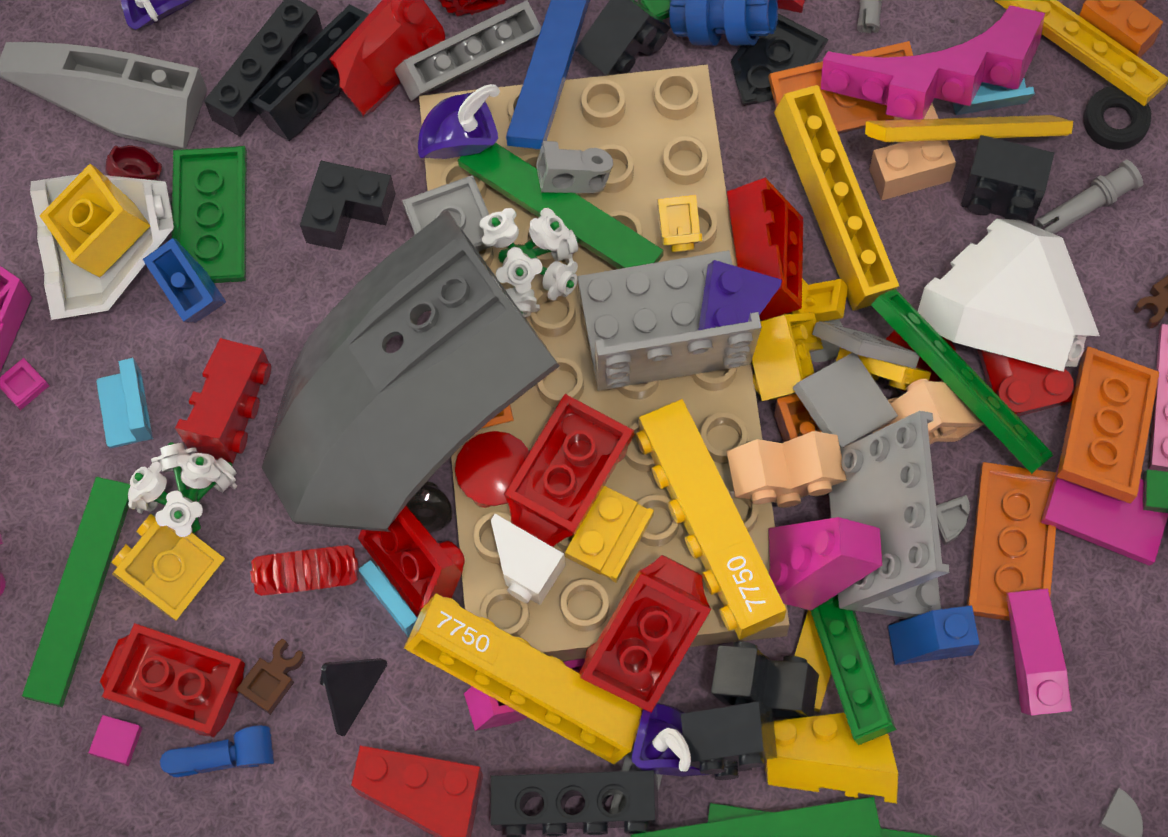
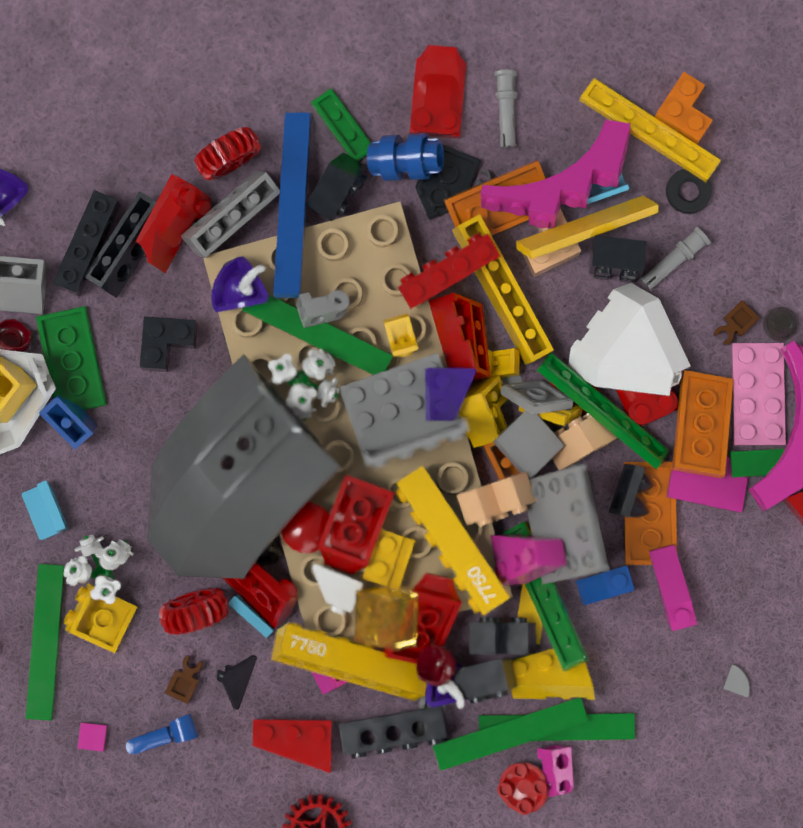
camera: 10 degrees left, 15 degrees up
(173, 680) = (120, 693): red slope -> none
(226, 400) = (115, 498): red wedge -> none
(460, 199) = (246, 341): light grey tile -> none
(590, 608) = (385, 617): none -> clear yellow brick
(655, 701) = (435, 665): none -> dark red hair
(763, 144) = (447, 272): none -> red brick
(952, 518) = (604, 501): light grey tile -> none
(979, 512) = (625, 501): none -> black tile

